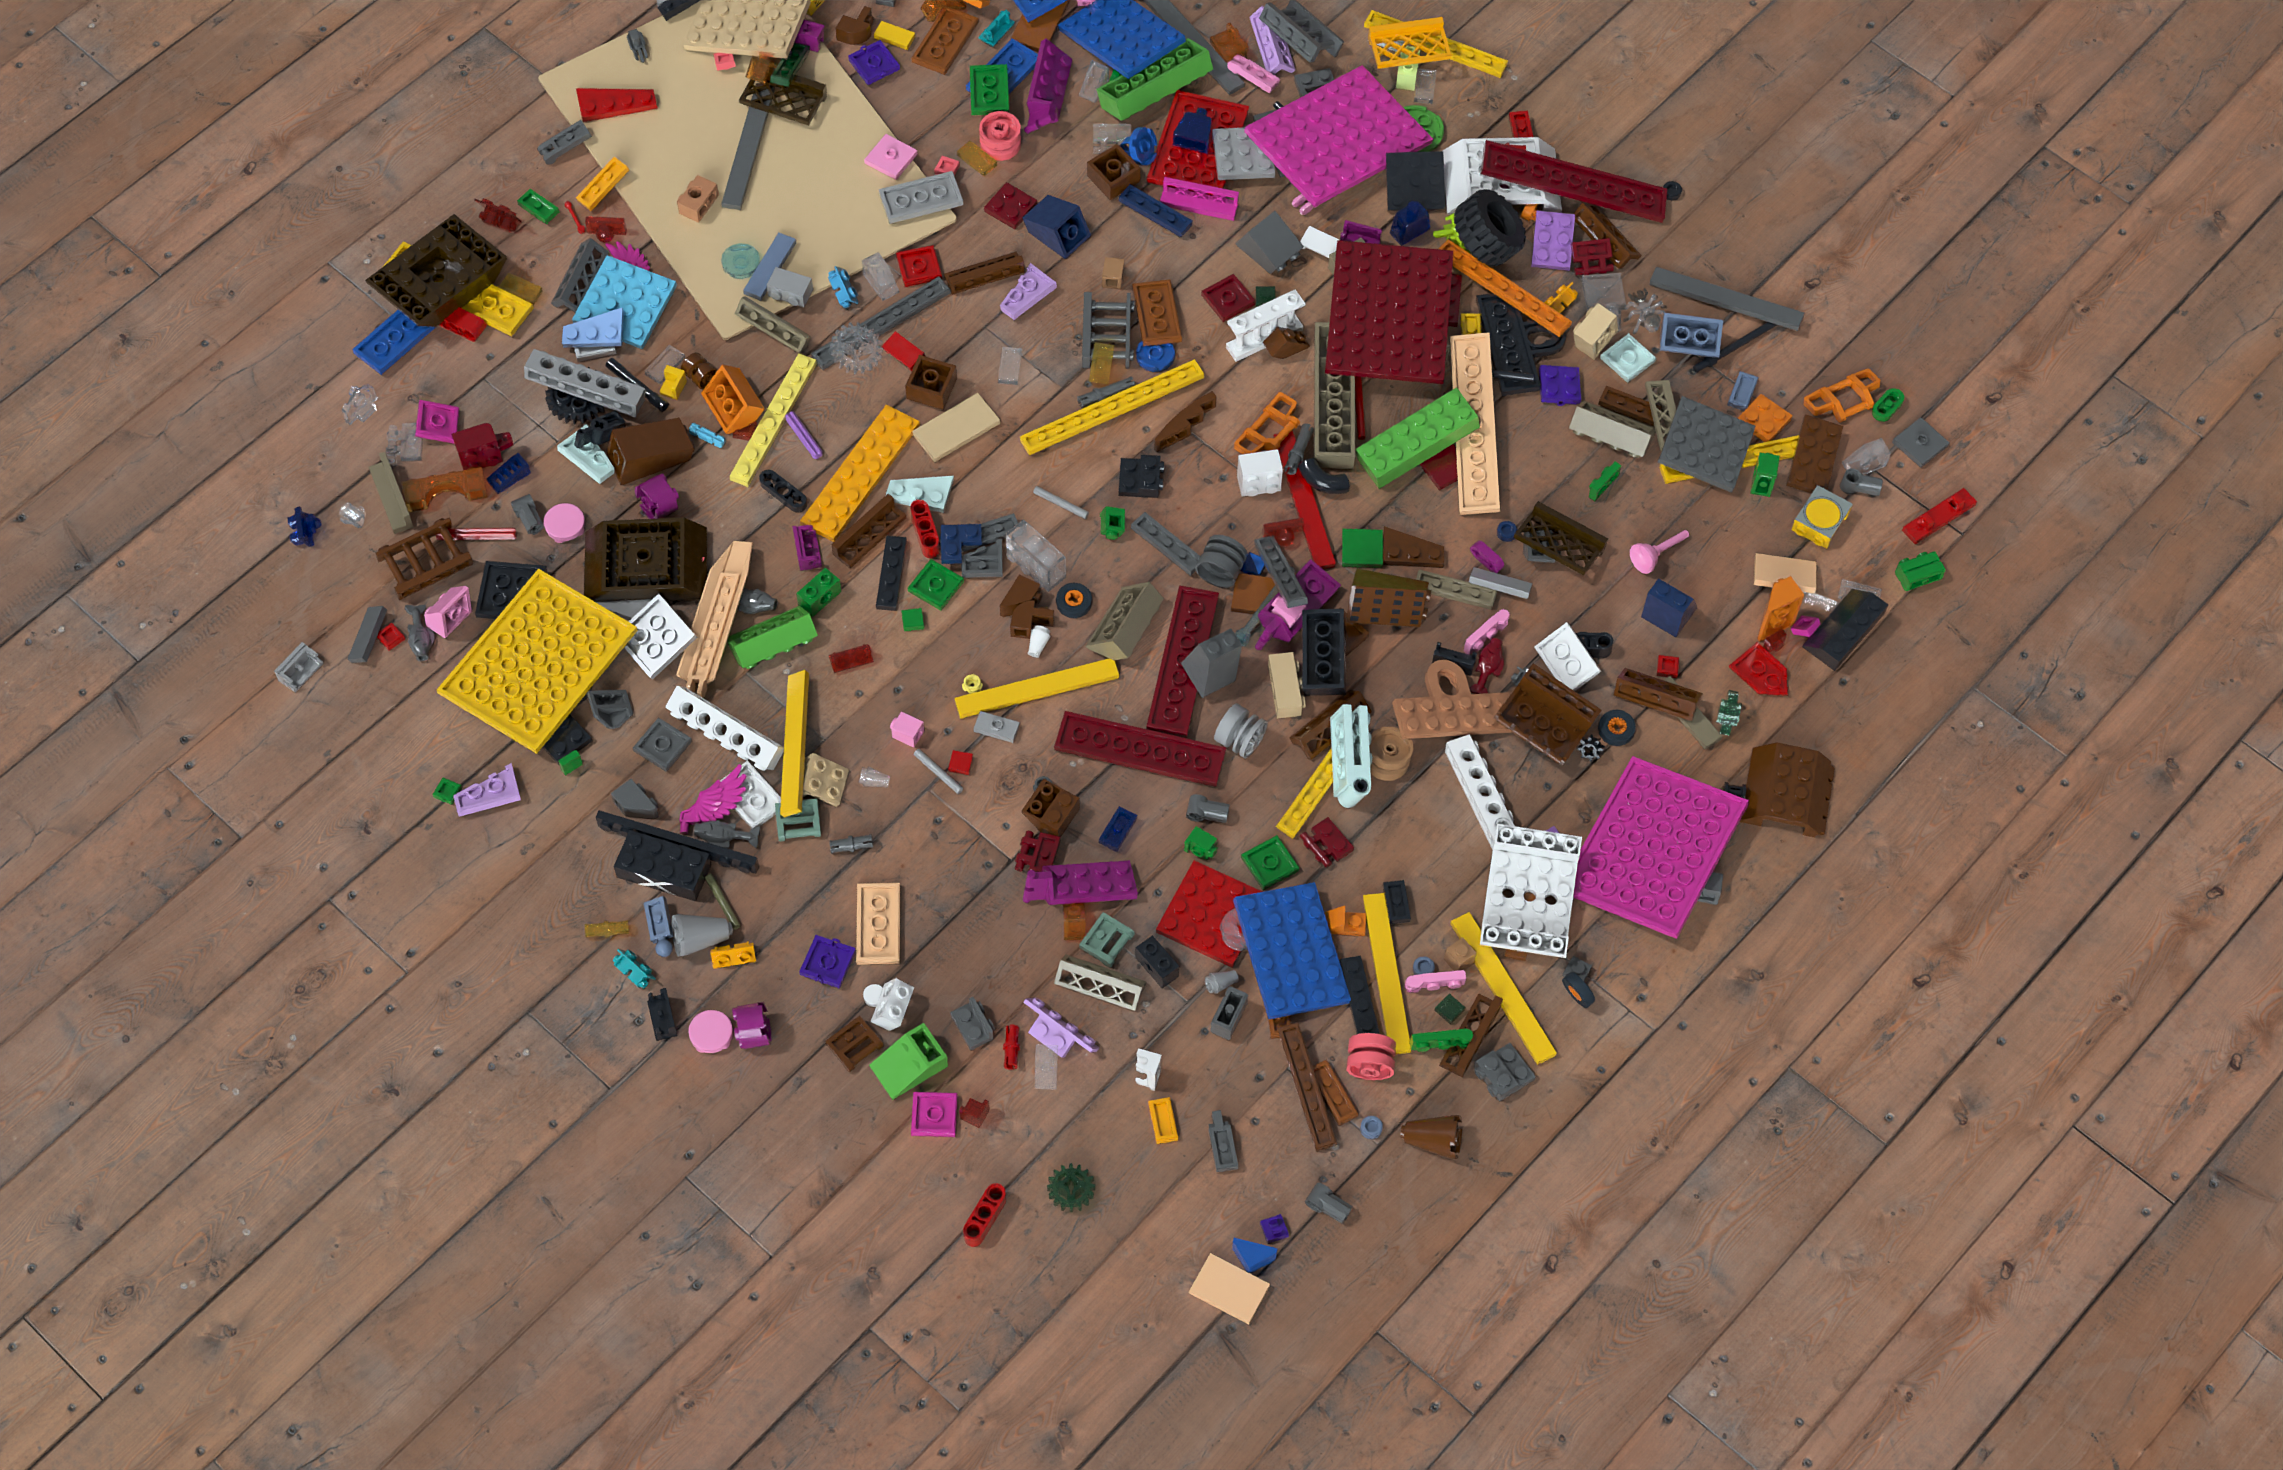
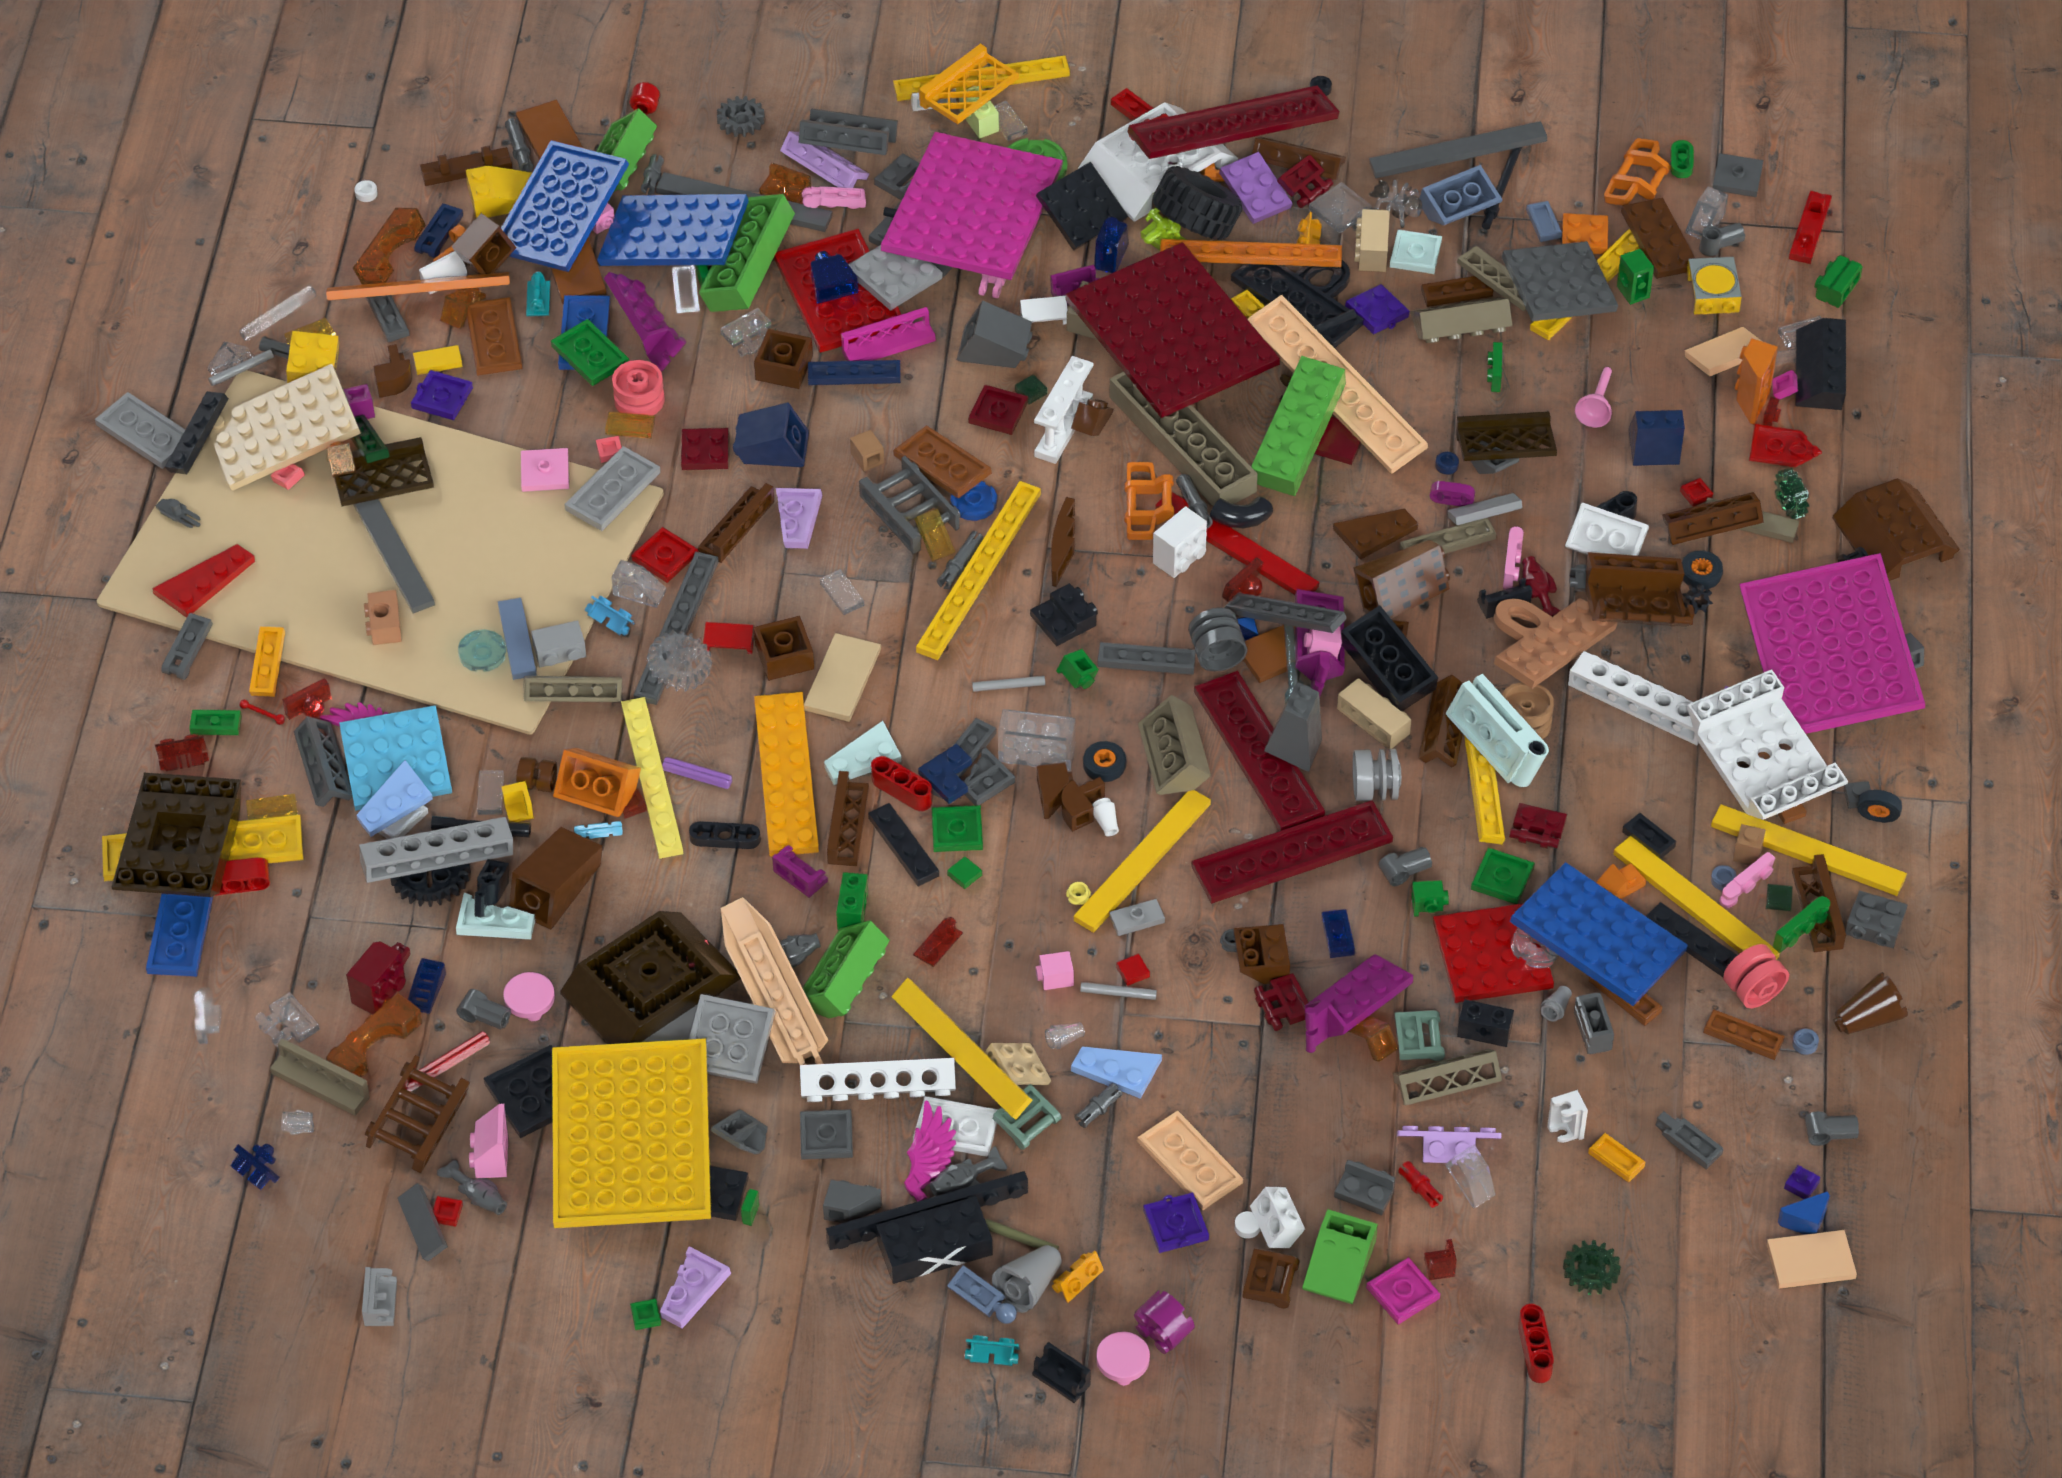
camera: 35 degrees left, 10 degrees down
(436, 421) = (304, 982): dark pink tile -> none
(606, 929) = (931, 1333): clear yellow pin -> none
(657, 497) = (608, 912): magenta brick -> none
(889, 826) = (1123, 1068): none -> light blue wing
(1141, 145) = (791, 317): blue tile -> none
(1307, 1087) = (1719, 1042): reddish brown tile -> none
(1362, 548) = (1330, 555): green tile -> none

